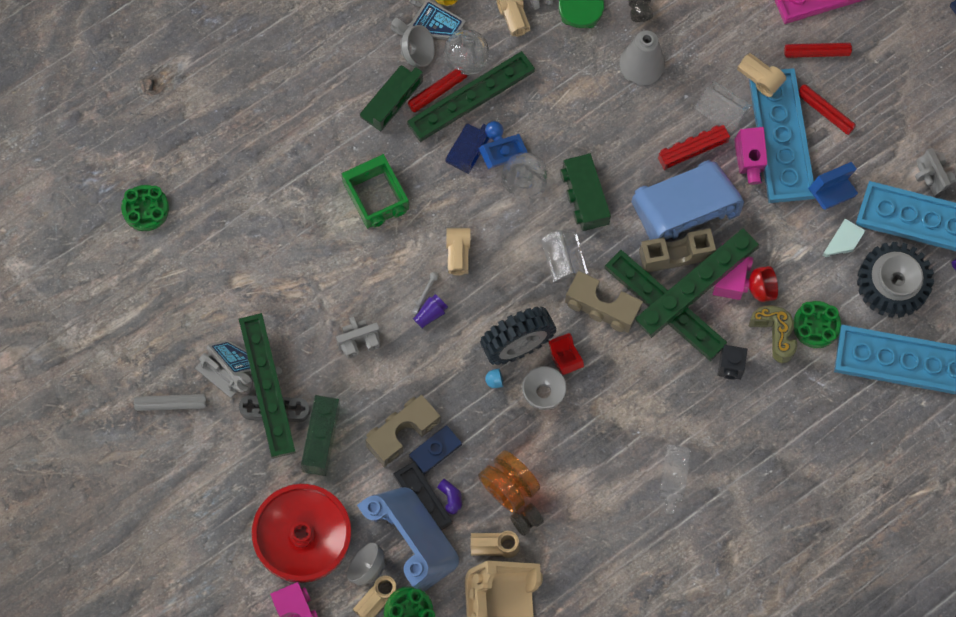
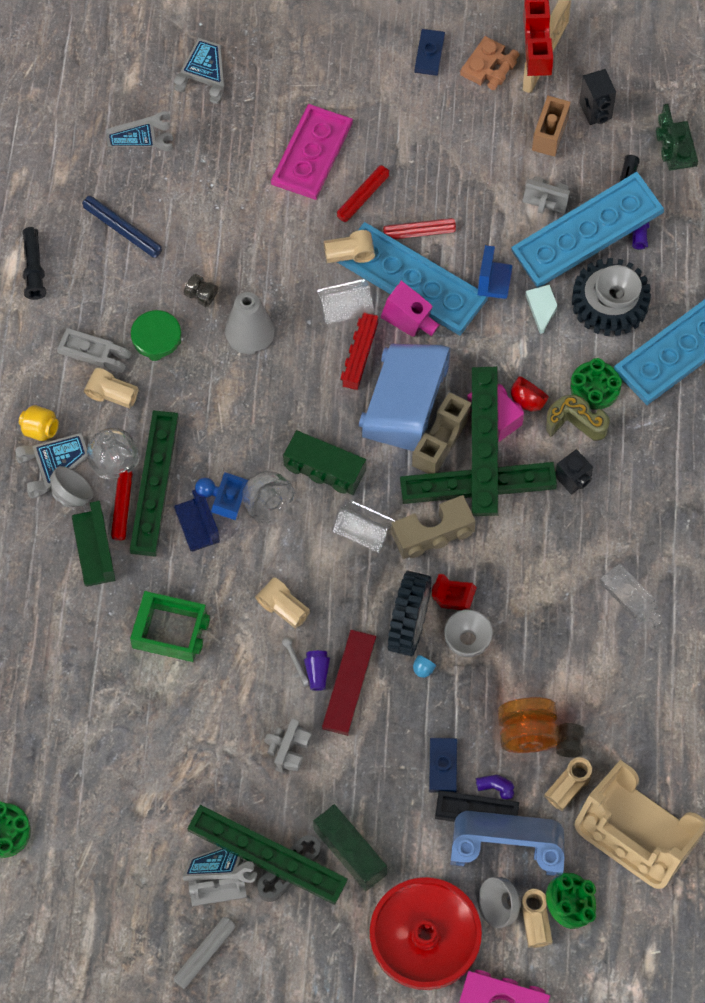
camera: 45 degrees left, 5 degrees down
(416, 415) = (403, 754): dark tan arch -> none
(440, 340) = (349, 682): none -> dark red tile

